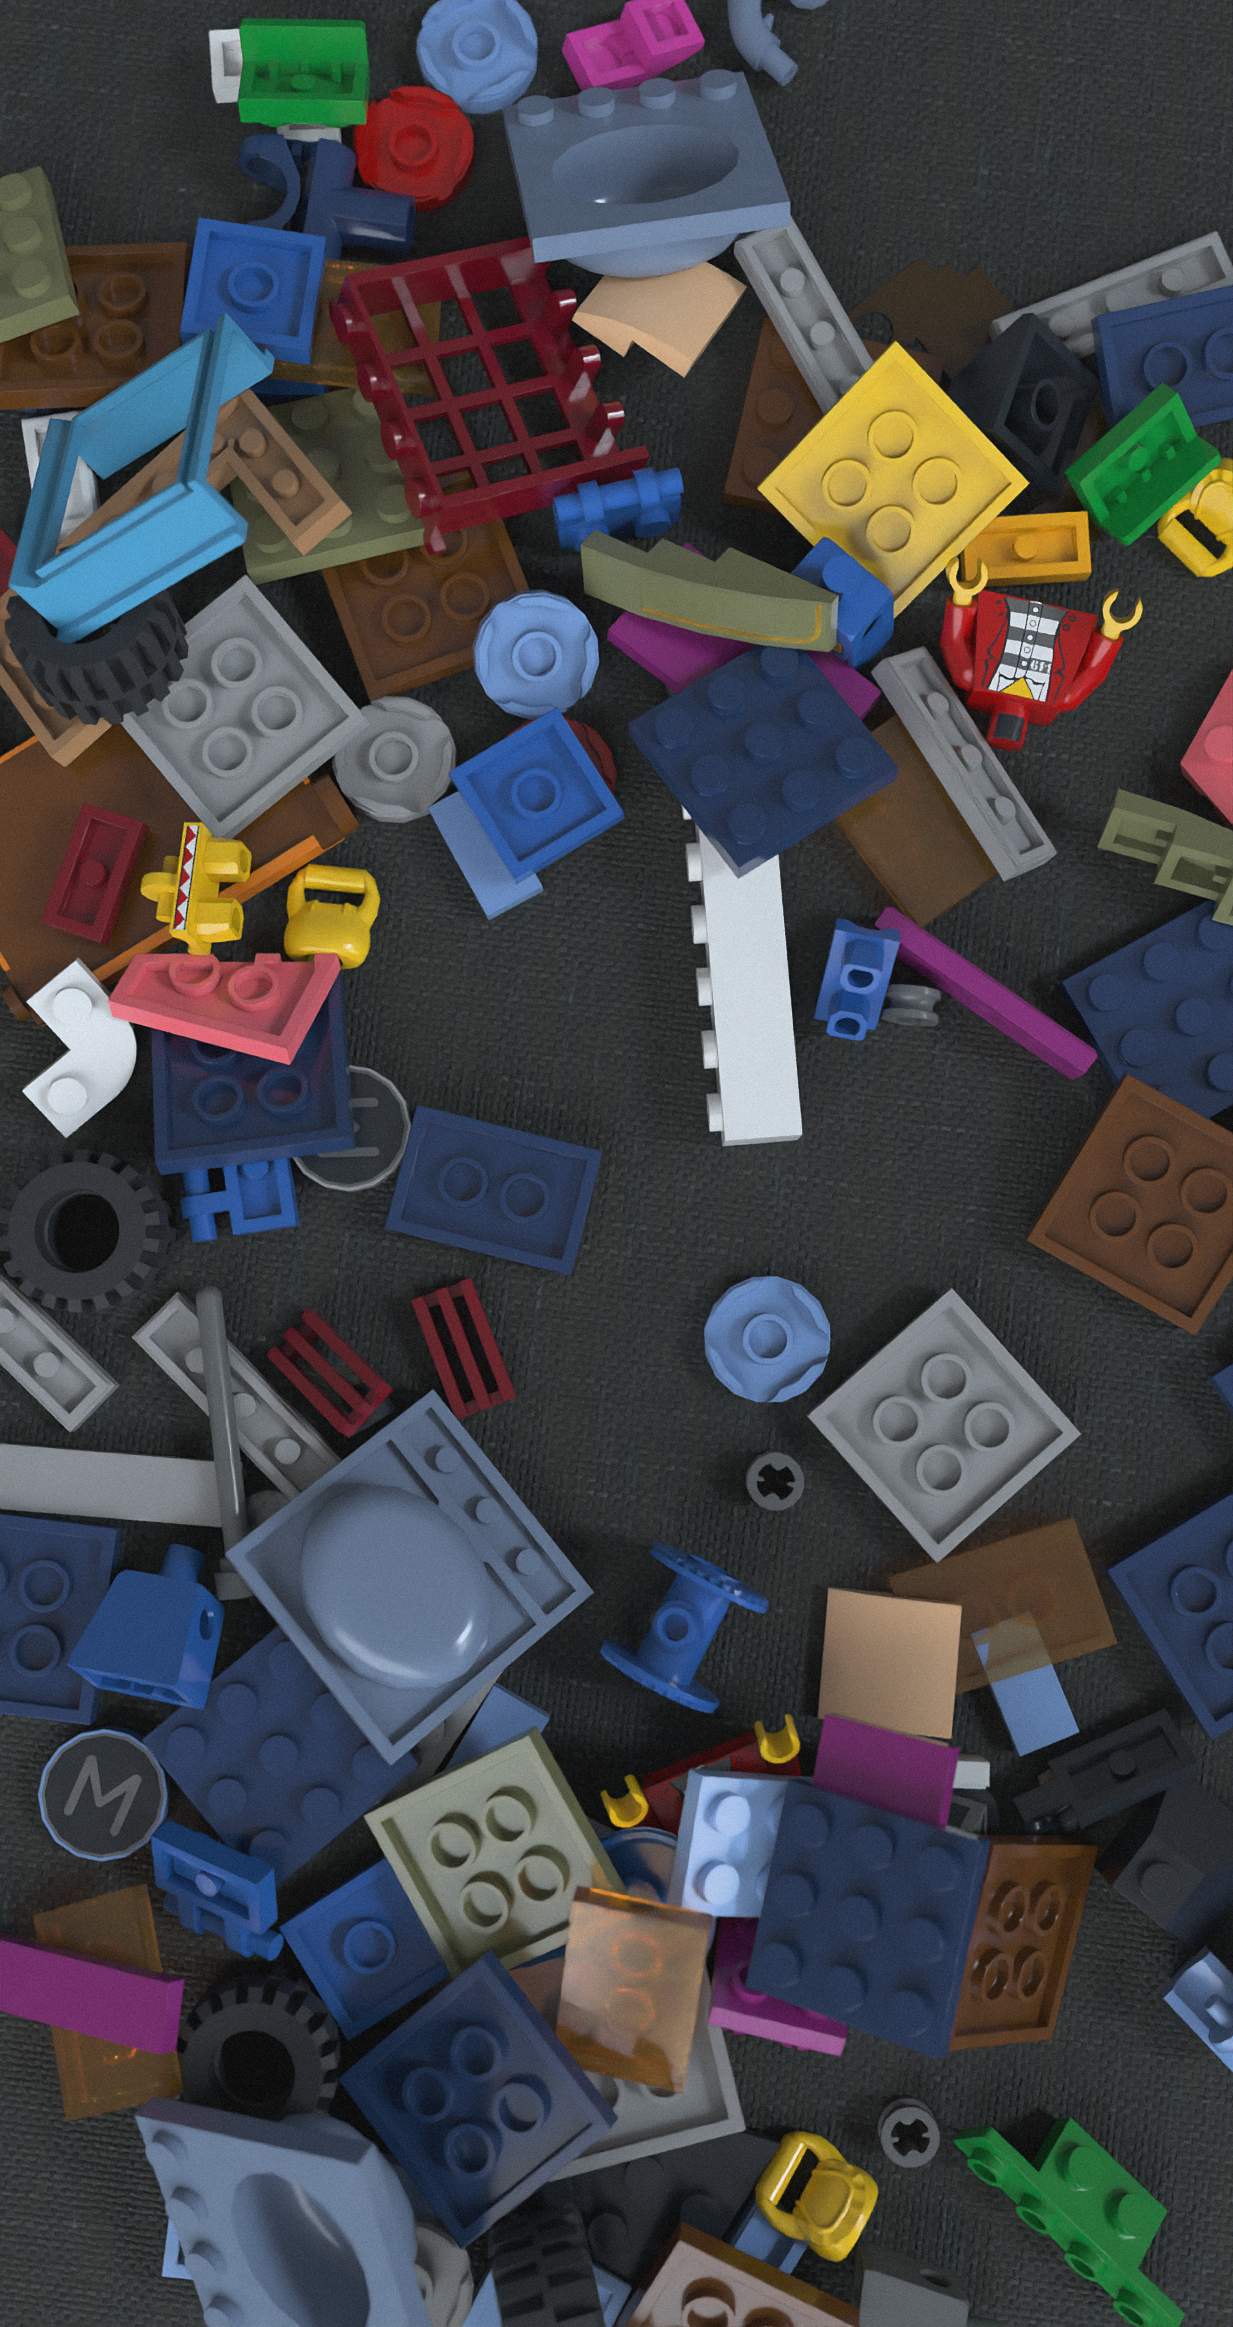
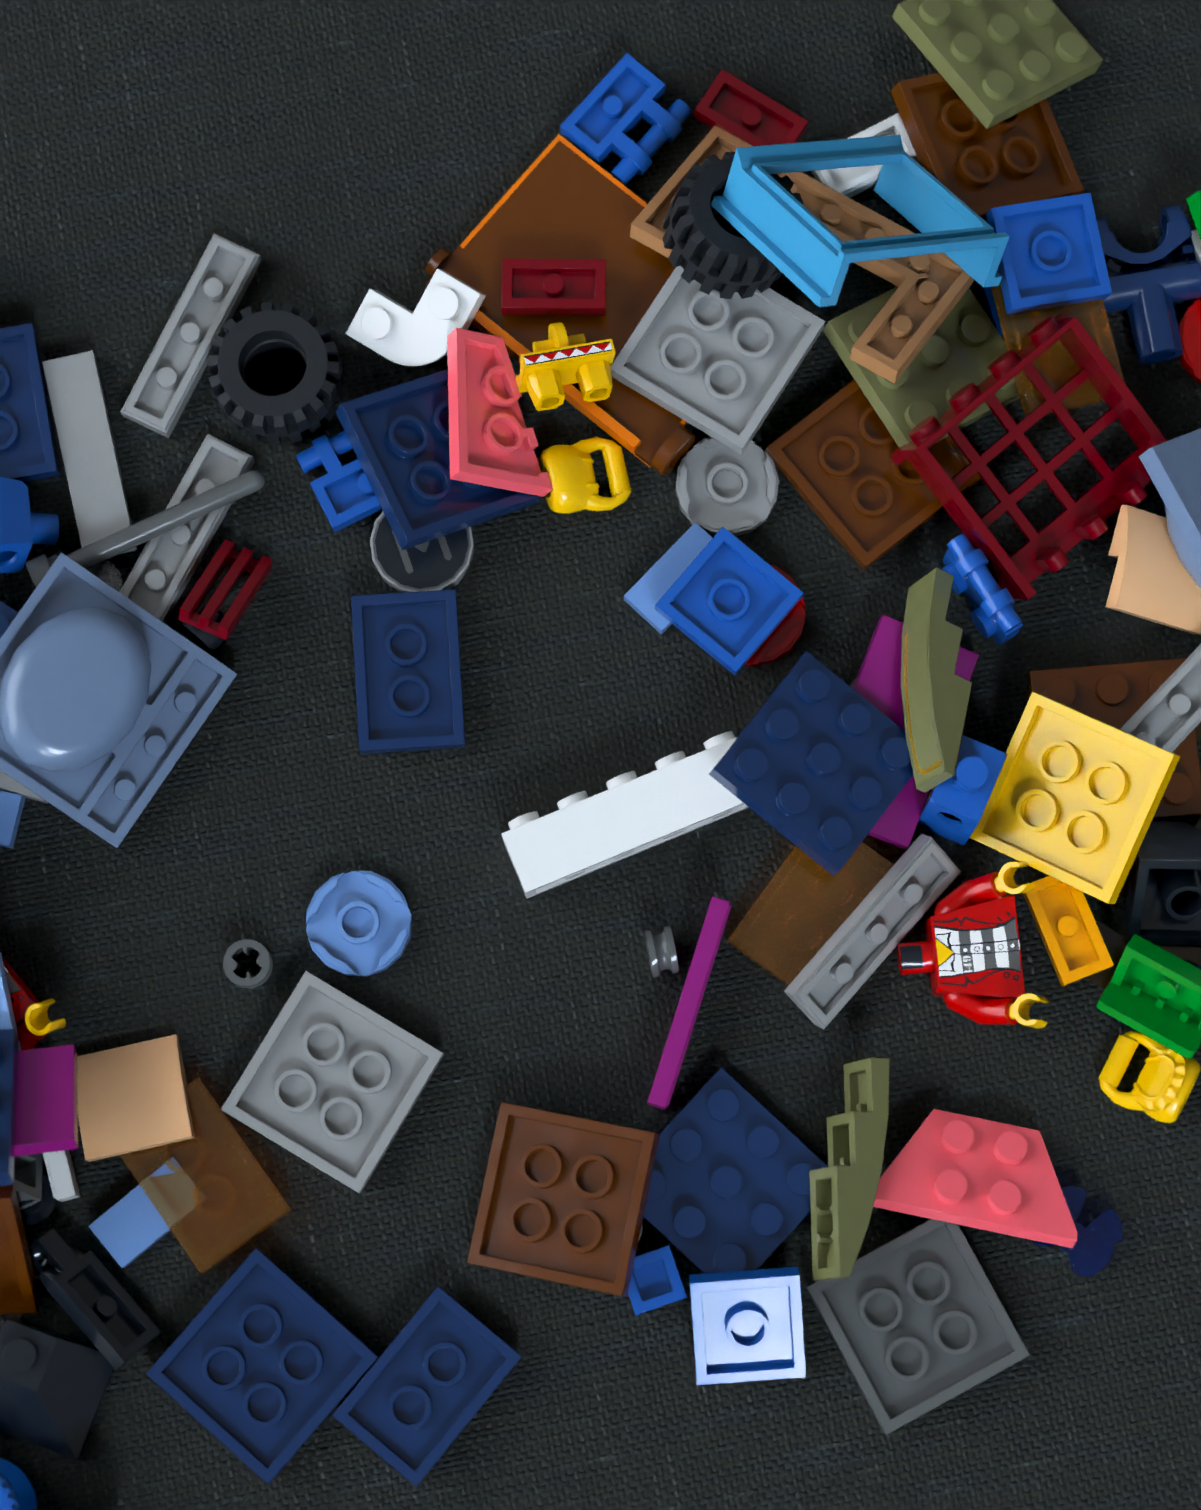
camera: 70 degrees right, 5 degrees down
(445, 1299) = (263, 674): dark red tile -> none
(535, 653) = (844, 564): medium blue tile -> none
(683, 1628) = (109, 922): blue hose -> none
(855, 979) = (664, 897): blue hips -> none

